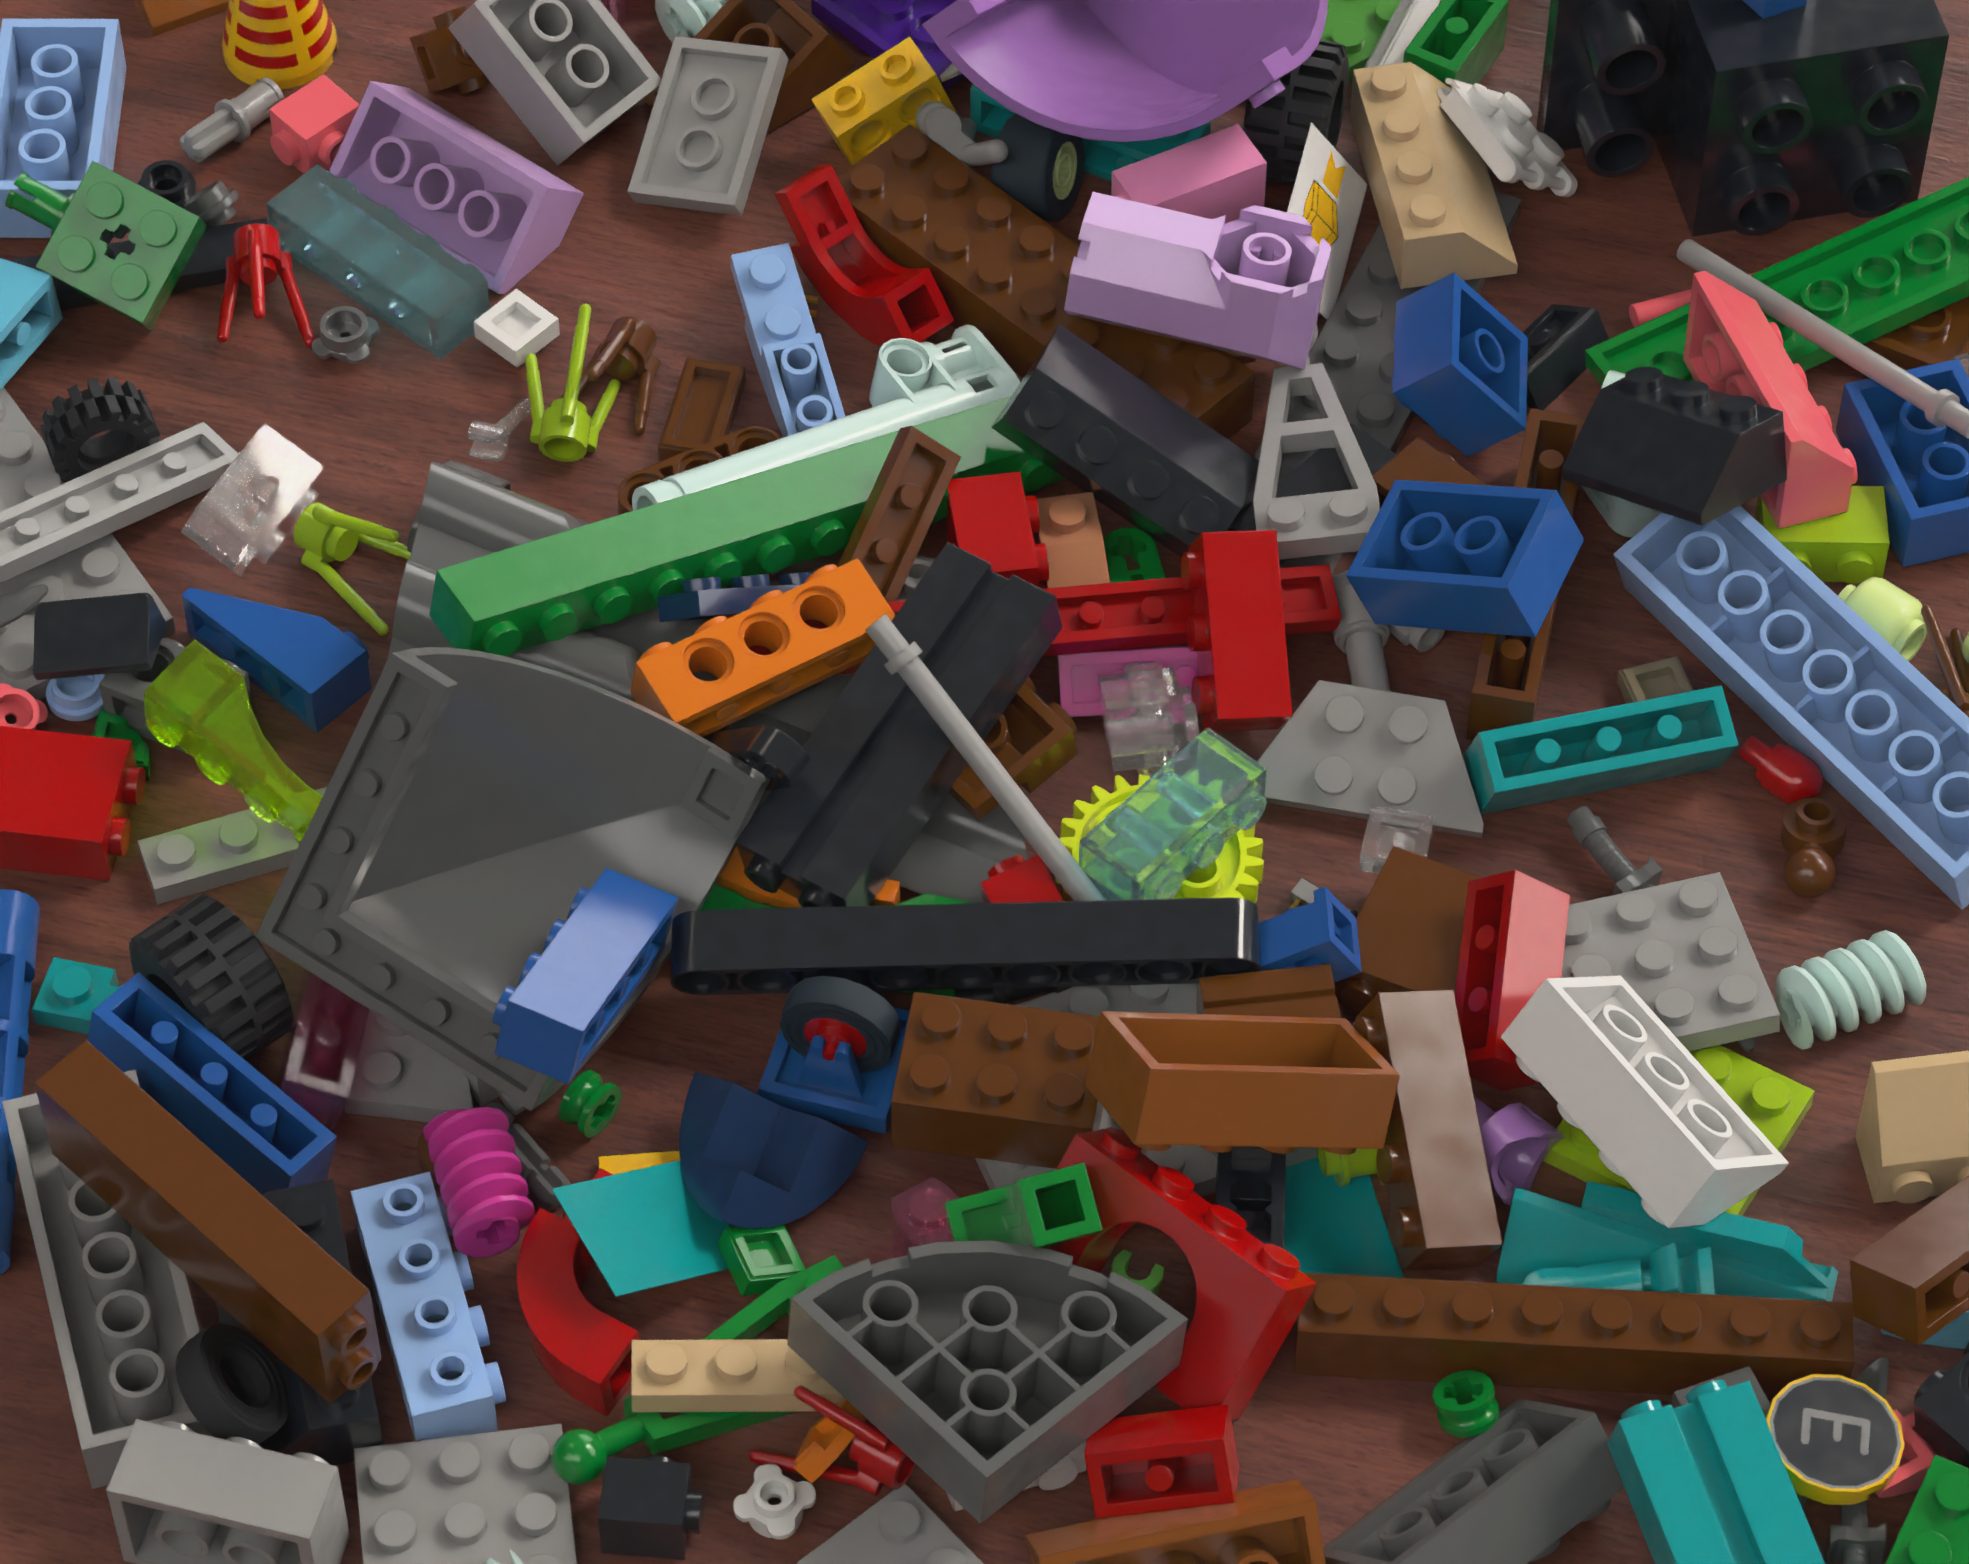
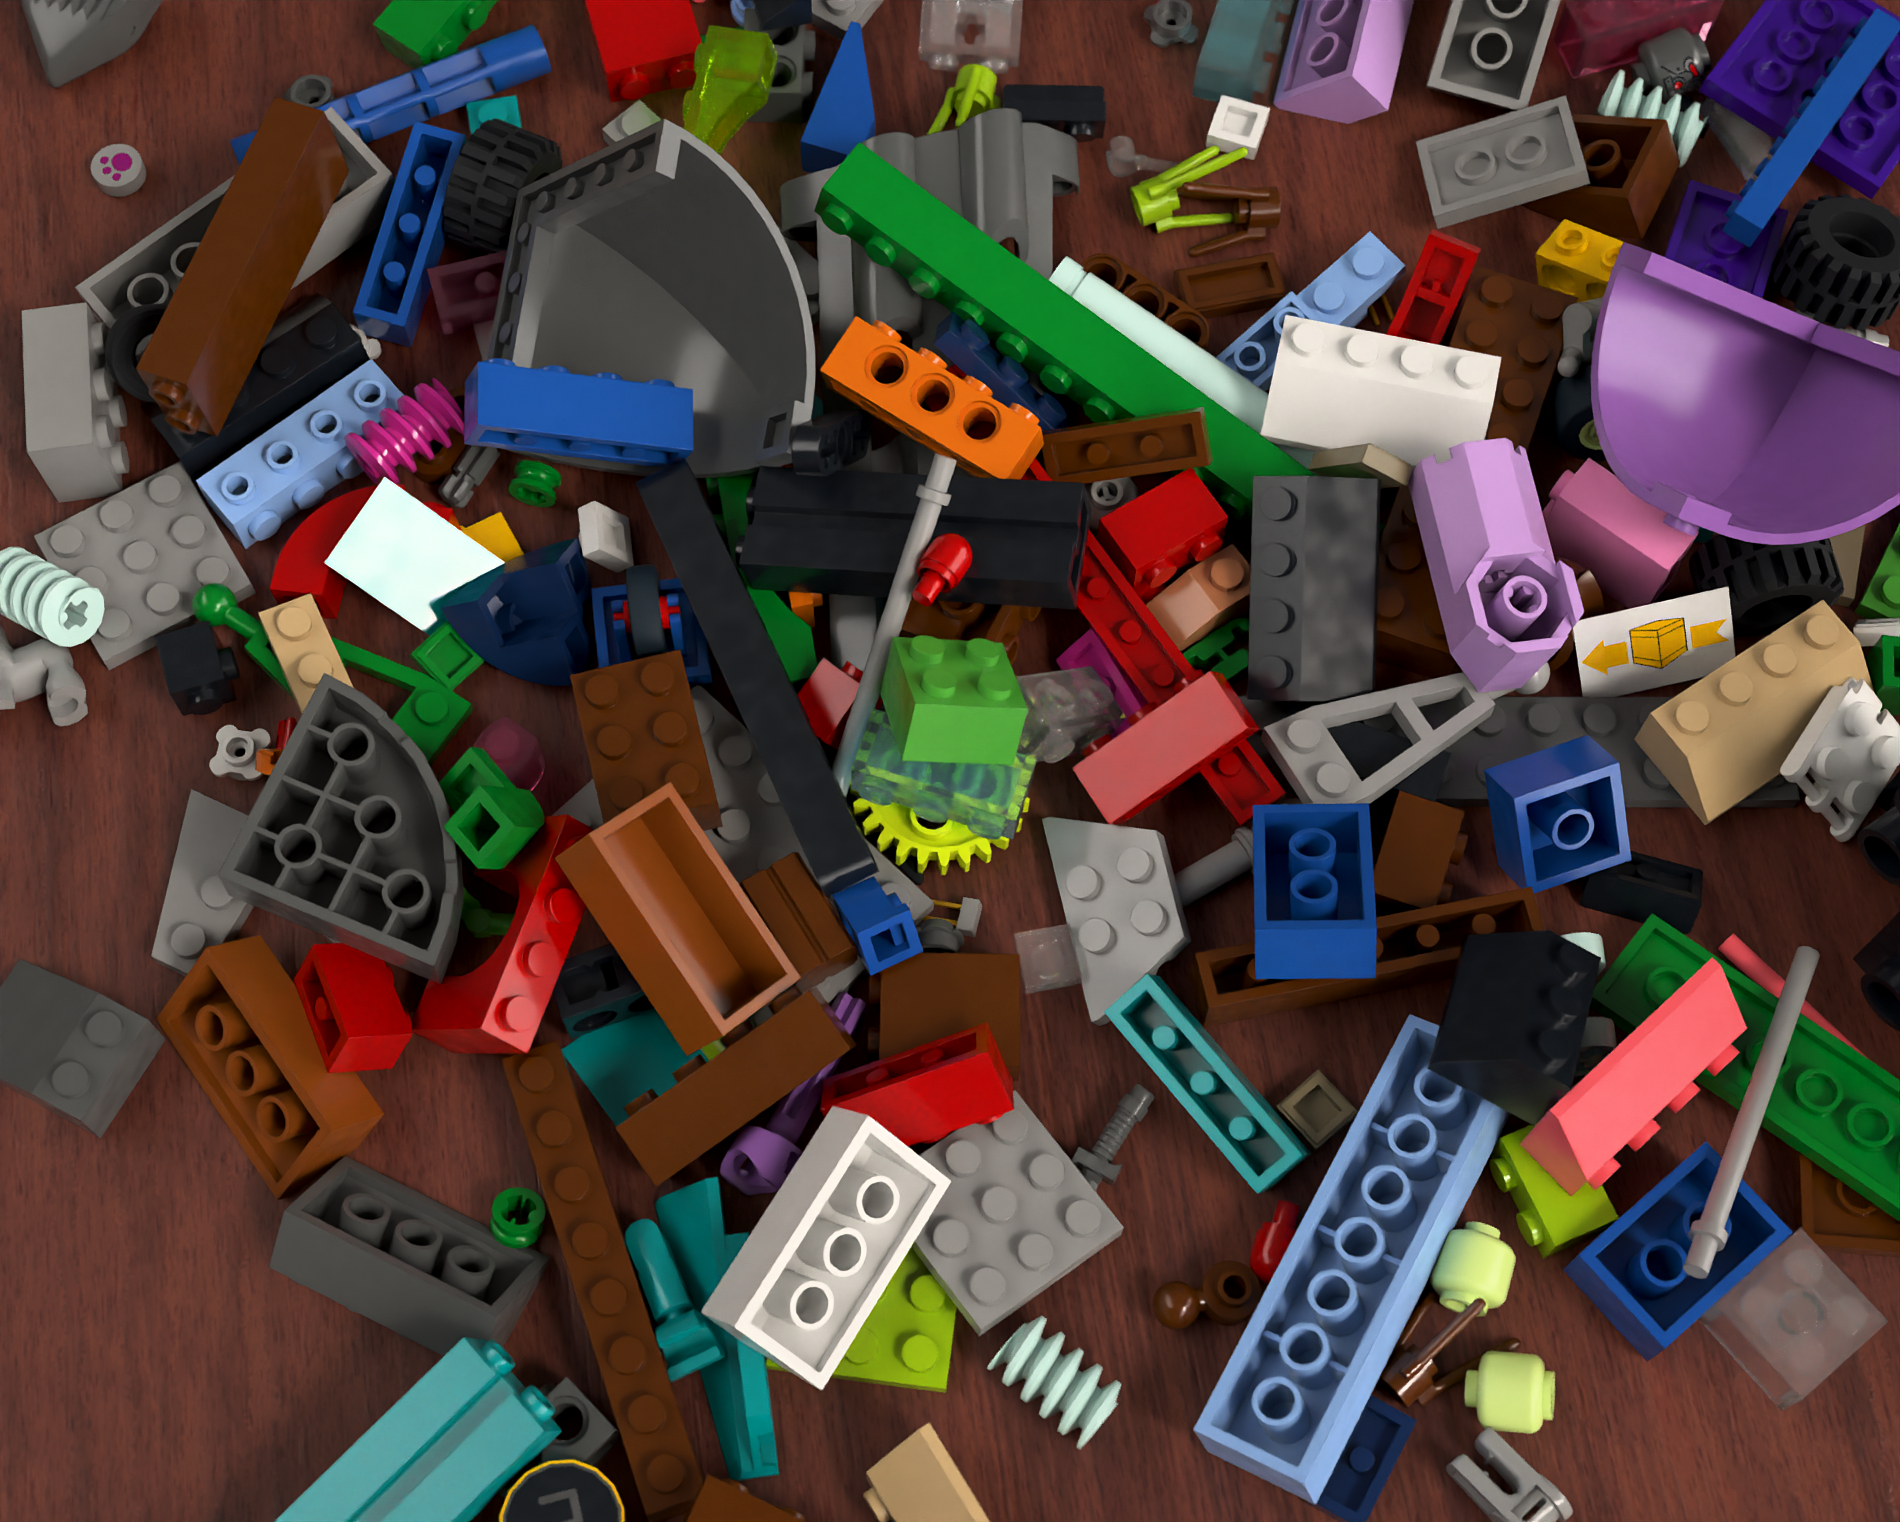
camera: 65 degrees right, 15 degrees up
(399, 467) = (1066, 108): none -> black bracket
(697, 1057) = (605, 536): none -> white plate
(950, 305) = (1375, 388): none -> white slope
(978, 694) = (942, 567): none -> red cylinder
(1023, 345) = (1362, 462): none -> dark tan tile
(1118, 757) = (953, 701): none -> bright green brick

